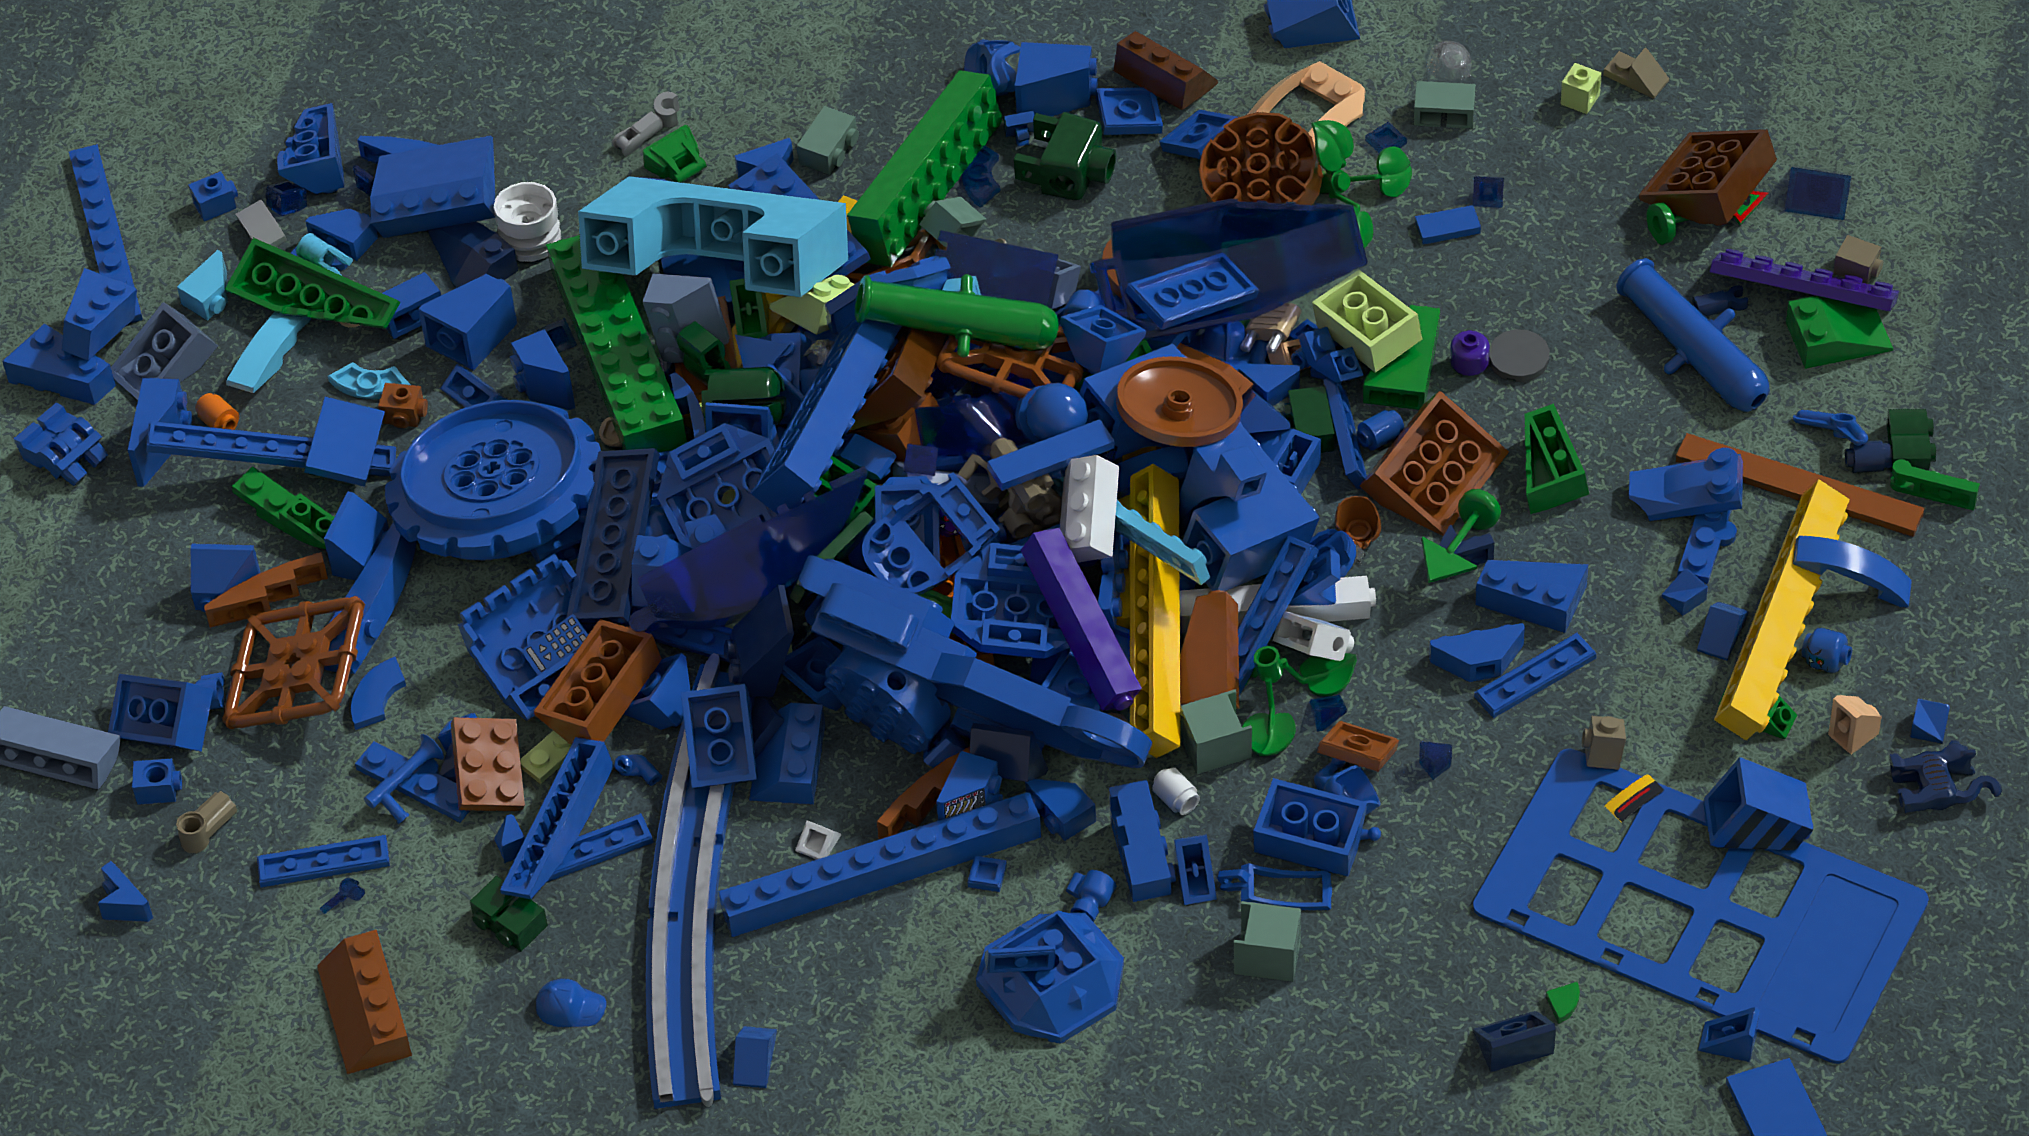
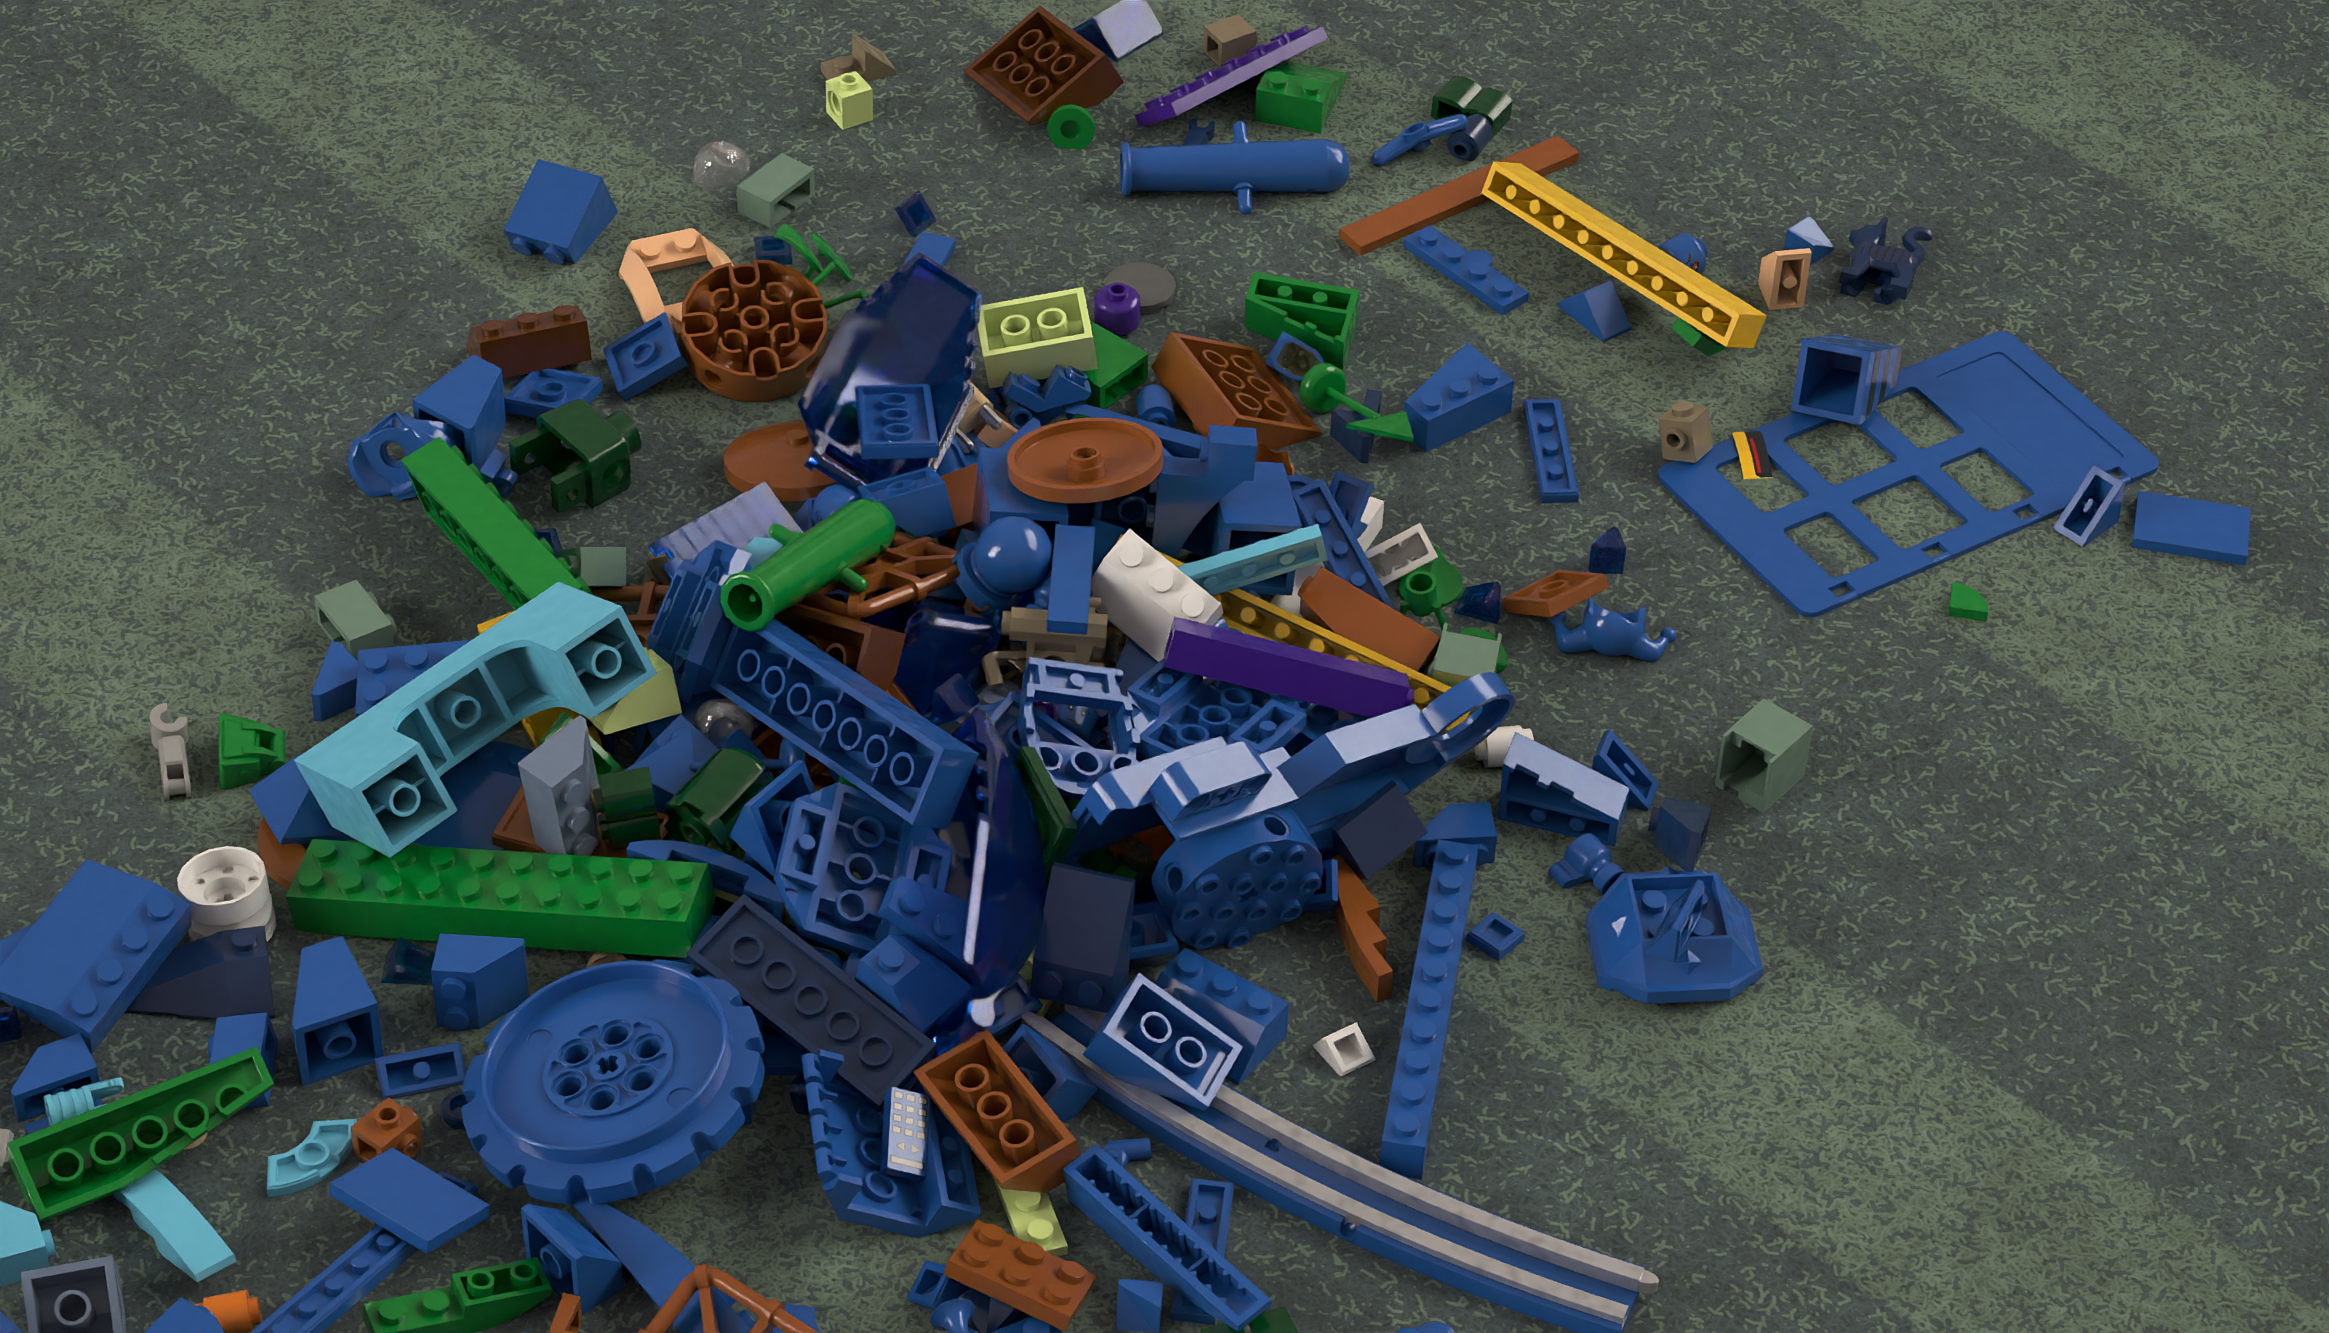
camera: 65 degrees left, 10 degrees down
(753, 1056) = (1611, 1221): blue slope -> none
(970, 785) = (1396, 879): blue slope -> none
(1152, 927) = (1680, 830): none -> dark blue slope
(1246, 886) = (1653, 740): blue sword -> none
(1309, 827) = (1639, 666): blue slope -> none
(1478, 653) = (1499, 470): blue slope -> none
(1501, 477) = (1292, 357): none -> rock
(1516, 1040) = (1993, 647): dark blue slope -> none
(1685, 592) = (1533, 312): blue slope -> none
(1690, 486) = (1418, 245): blue slope -> none
(1854, 562) = (1593, 192): blue slope -> none
(1933, 485) = (1539, 116): green plate -> none

